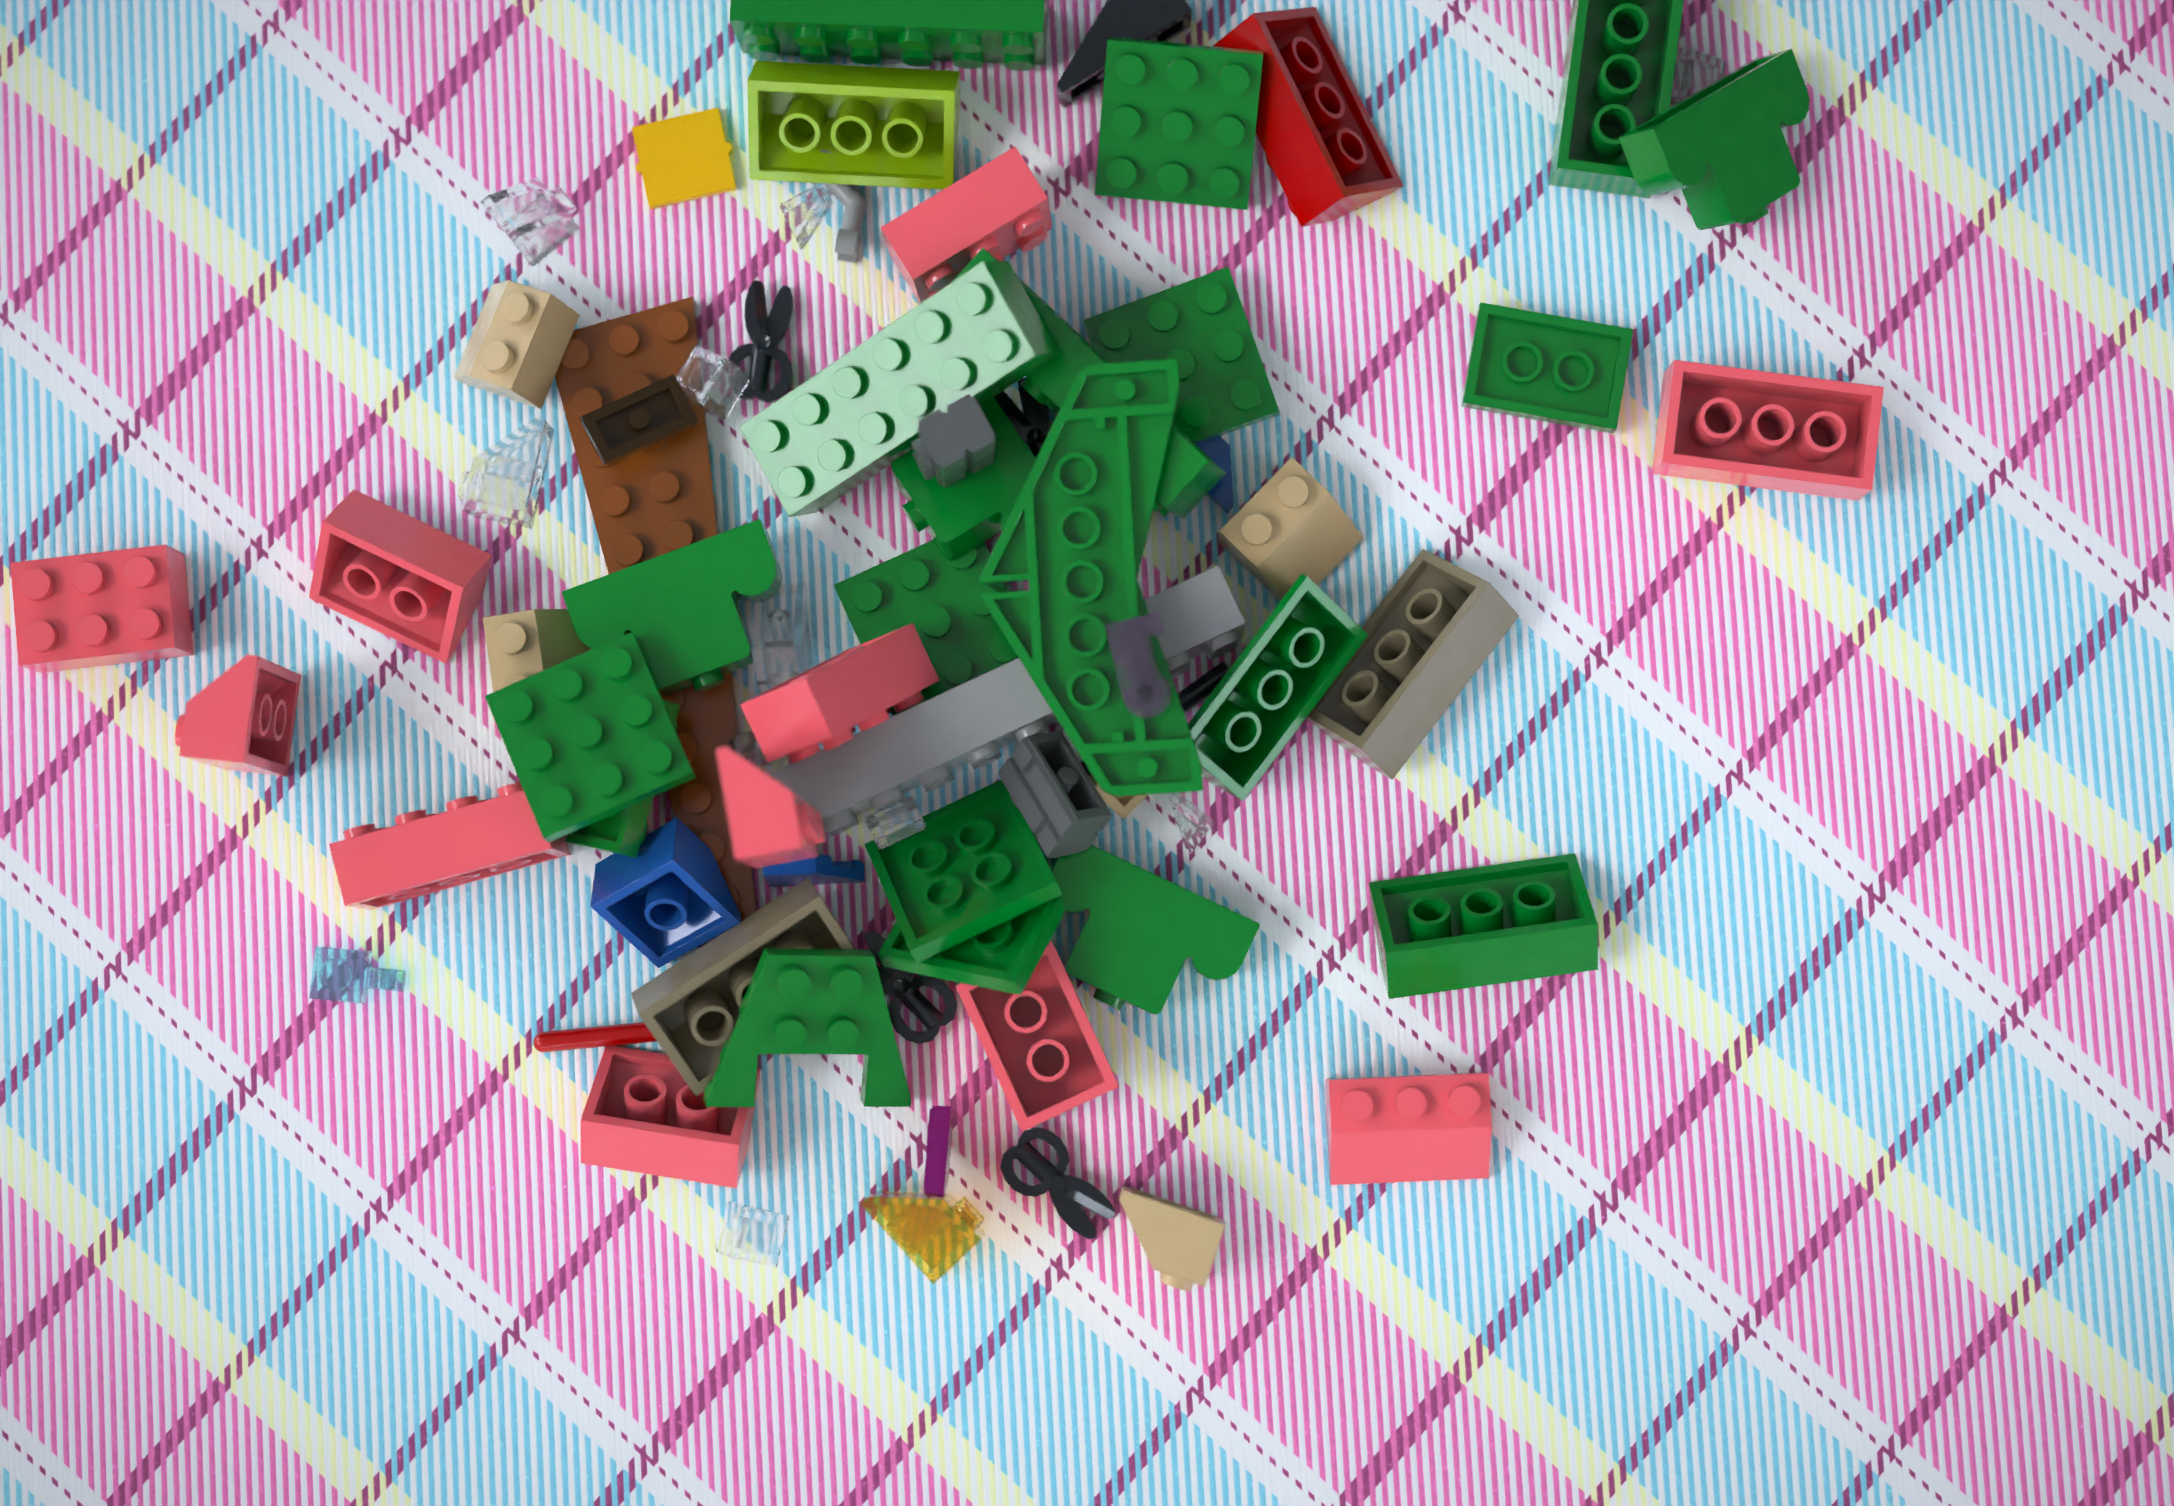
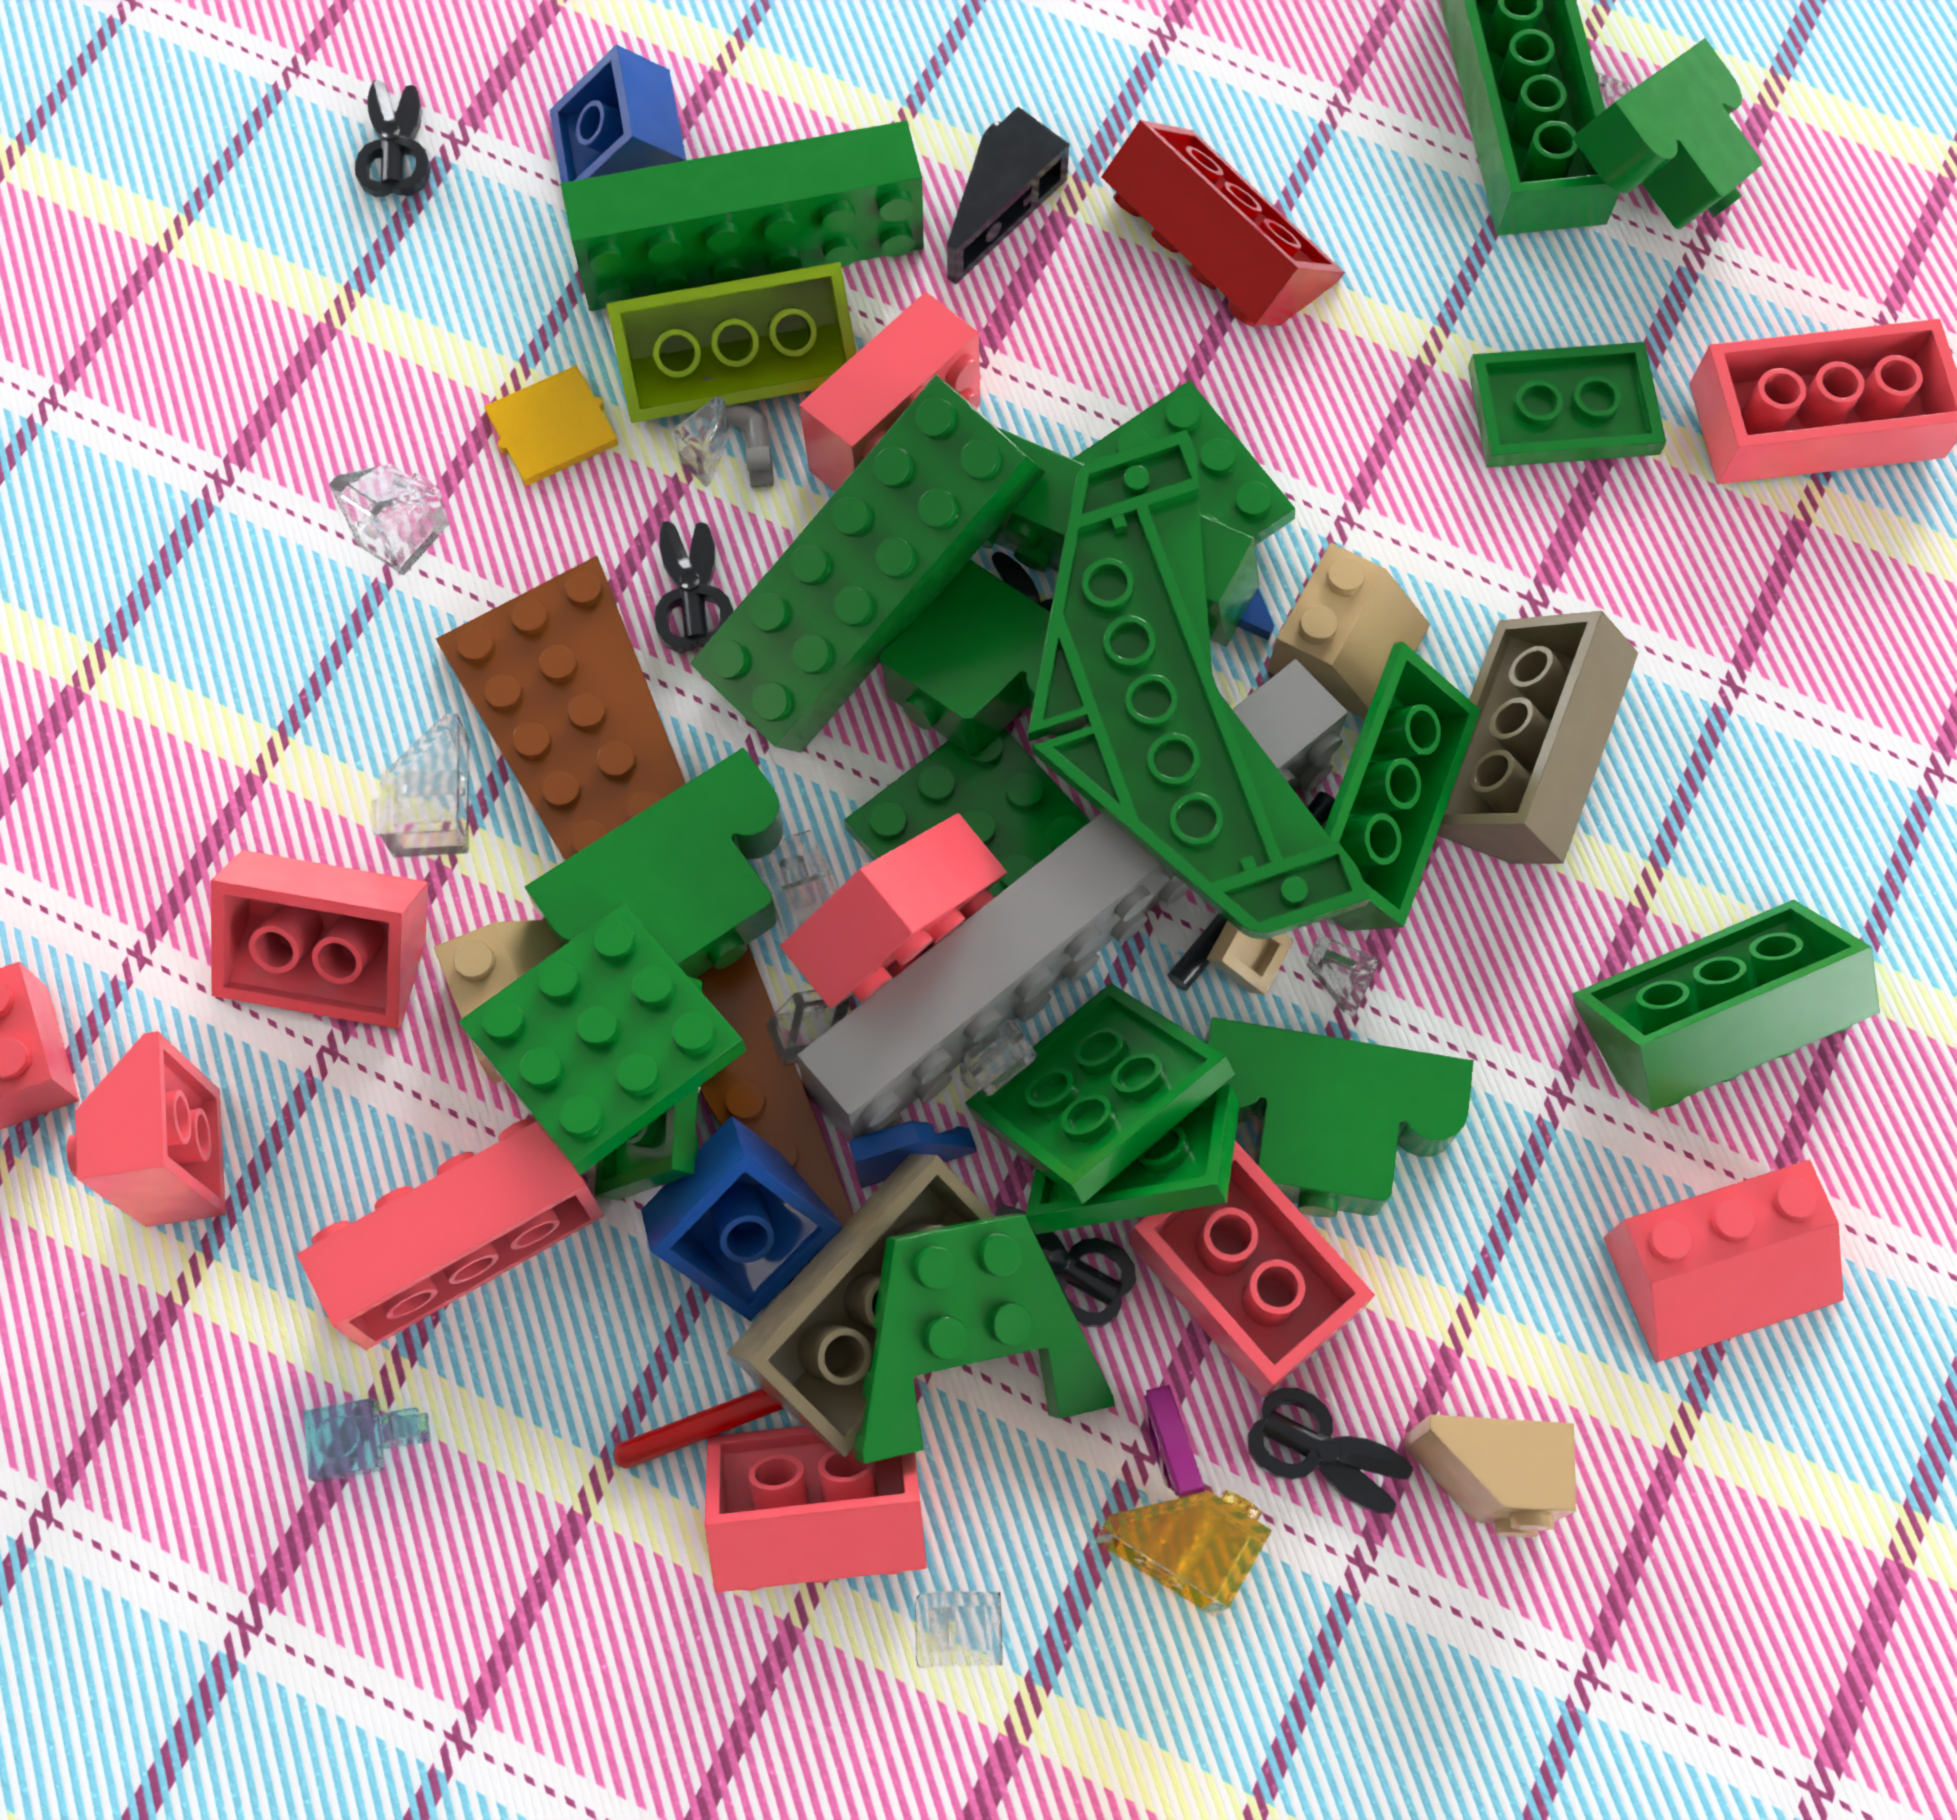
camera: 25 degrees left, 15 degrees down
(517, 343) = (405, 643): tan slope -> none
(639, 420) = (569, 685): dark brown plate -> none
(712, 382) = (642, 634): clear slope -> none
(765, 817) = (858, 1039): coral slope -> none
(954, 442) = (954, 592): dark grey brick -> none
(1054, 794) = (1184, 968): dark grey brick -> none
(1141, 683) = (1250, 767): clear purple leg -> none
(1178, 122) = (1090, 252): green plate -> none

